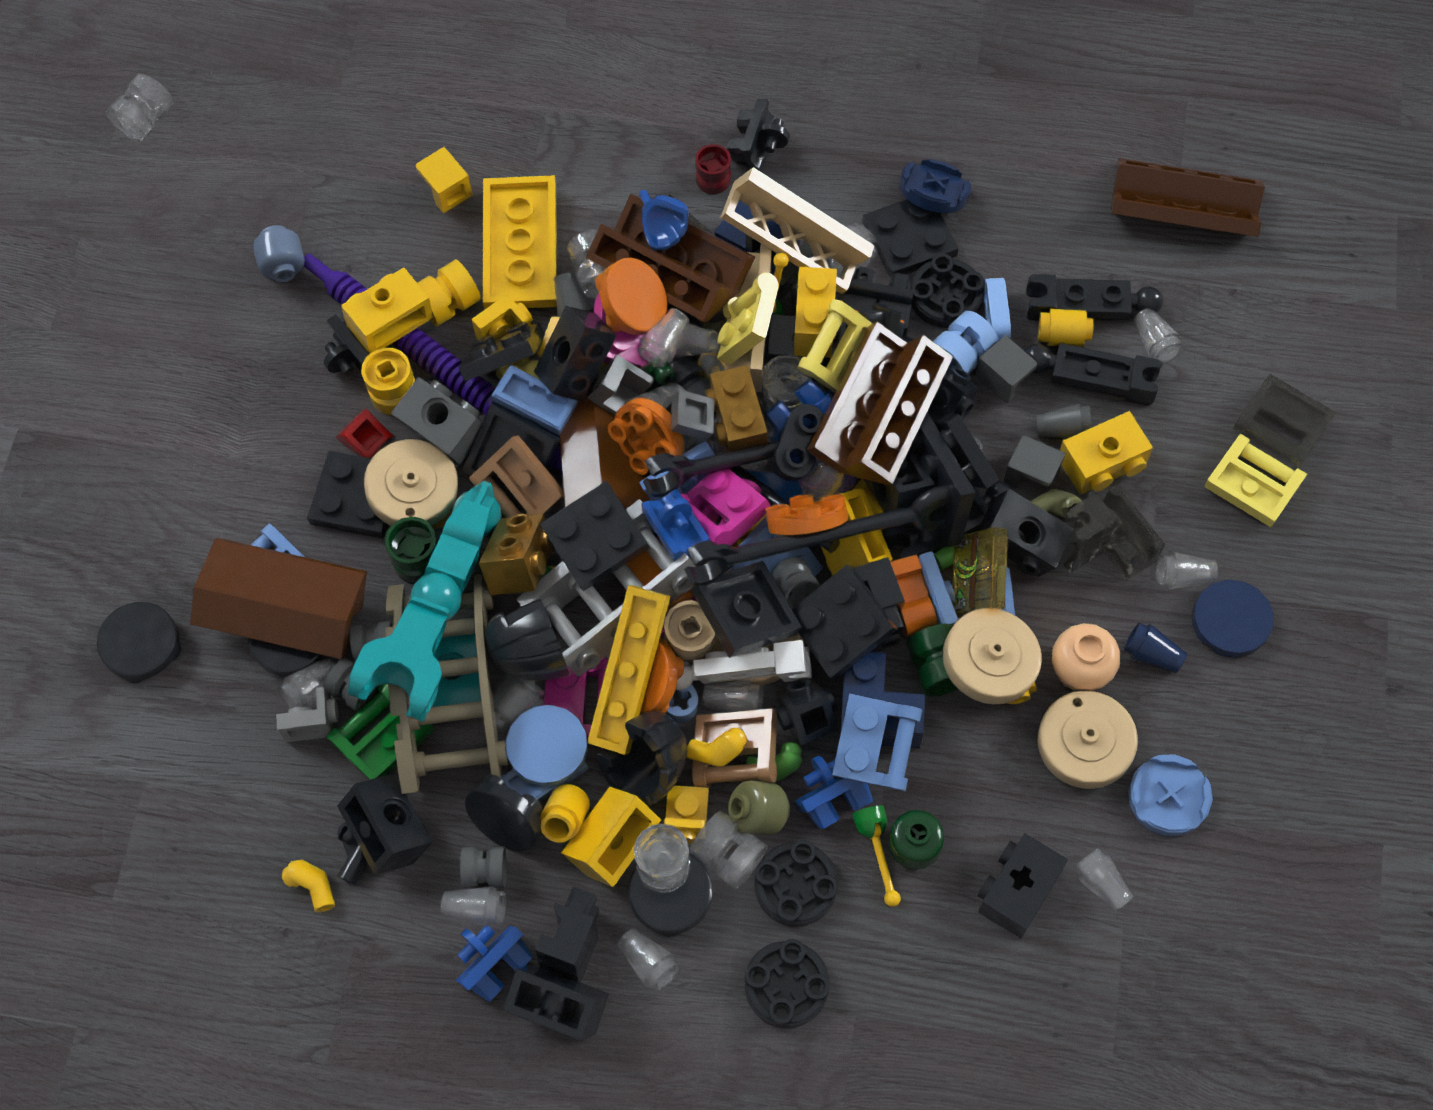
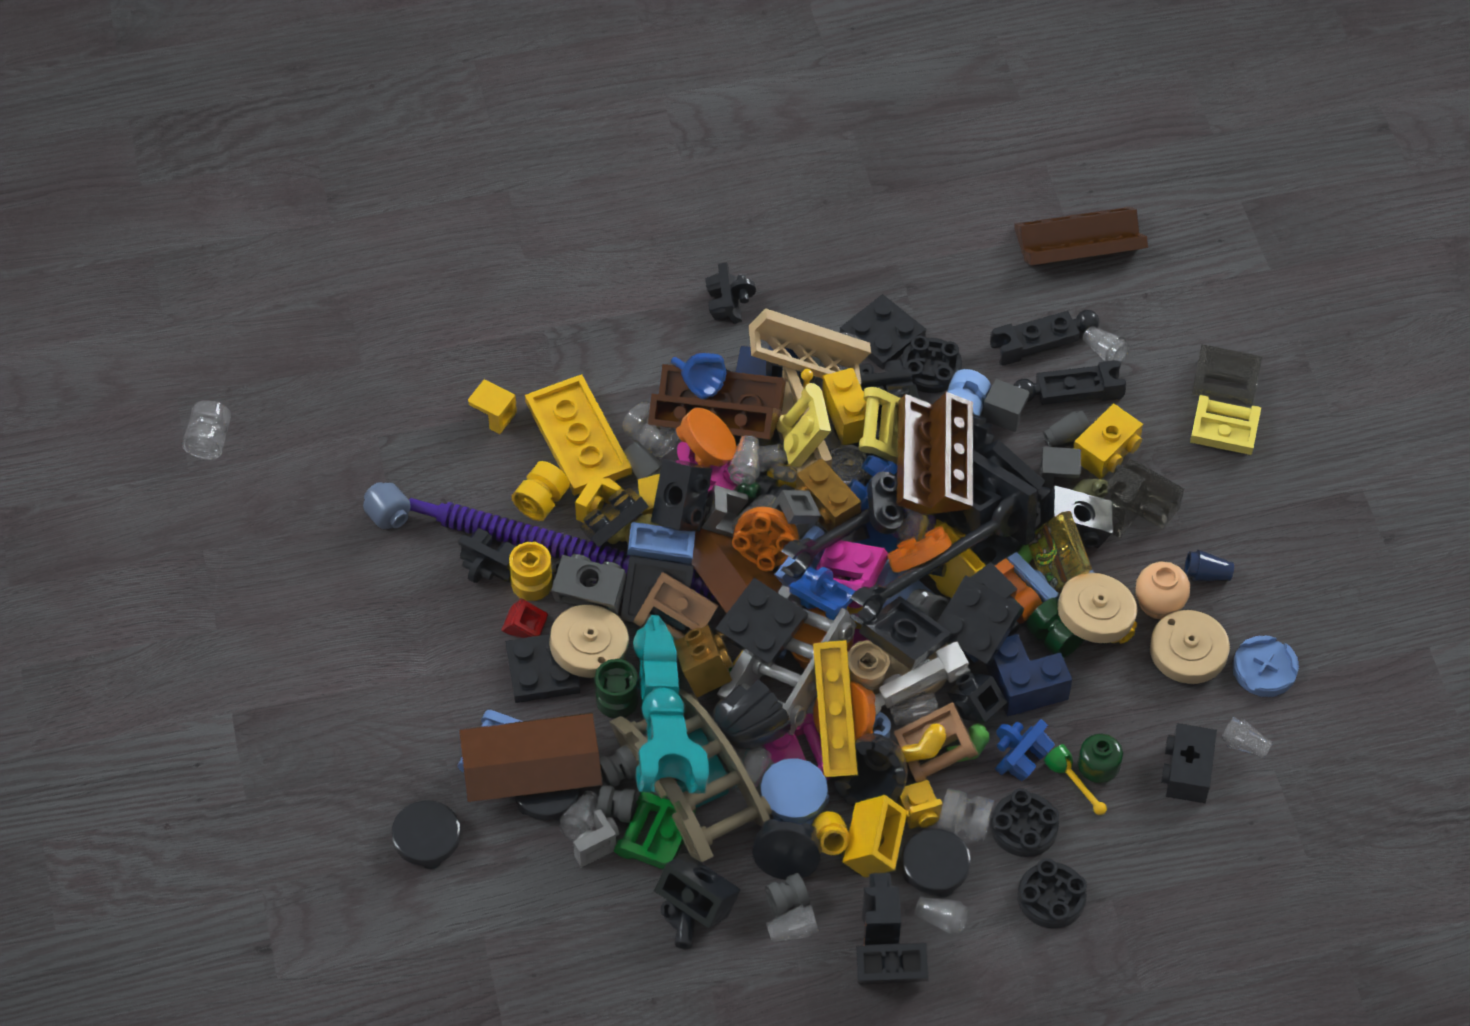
camera: 25 degrees left, 10 degrees down
(312, 878) = (659, 953): yellow arm -> none
(387, 311) = (506, 516): yellow brick -> none
(506, 947) = (832, 944): blue hips -> none
(662, 857) = (924, 832): clear wheel -> none
(713, 169) = (706, 329): dark red wheel -> none
(759, 807) = (975, 776): olive head -> none
(862, 741) = (1032, 698): medium blue plate -> none
(934, 186) = (886, 287): dark blue tile -> none
(996, 306) = (976, 360): light blue beam -> none
(1065, 327) = (1034, 360): yellow brick -> none
(1183, 570) = (1202, 506): clear cone -> none
(1232, 618) = (1253, 527): dark blue tile -> none

